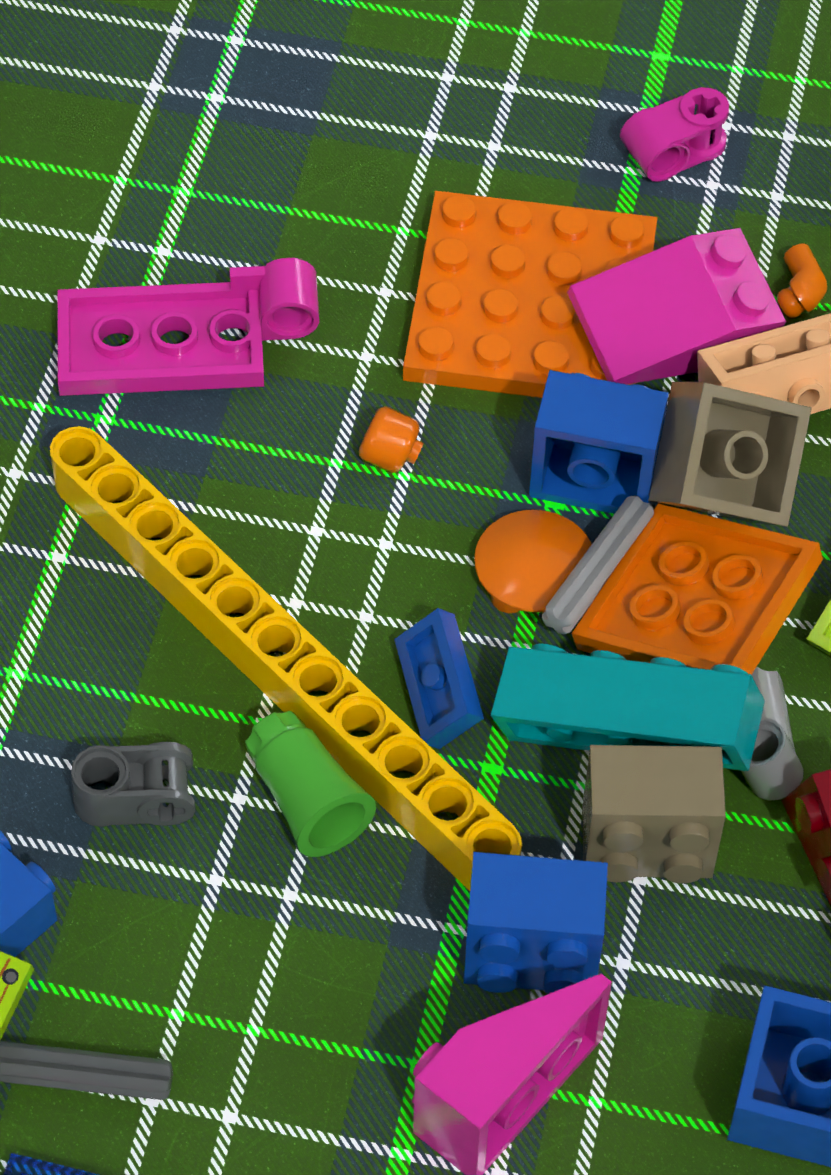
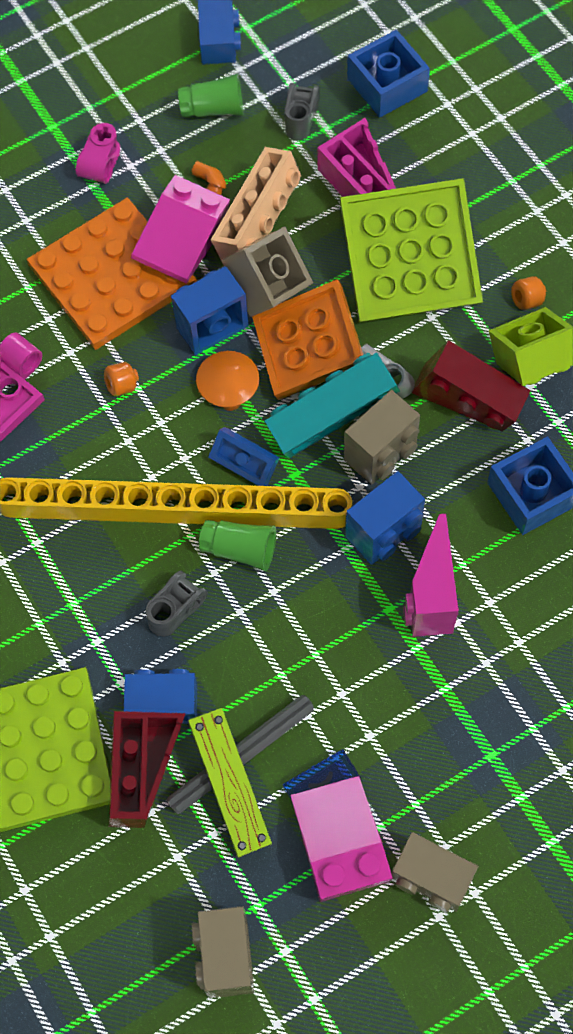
camera: 40 degrees left, 10 degrees up
(597, 565) = (256, 359): light grey axle -> none

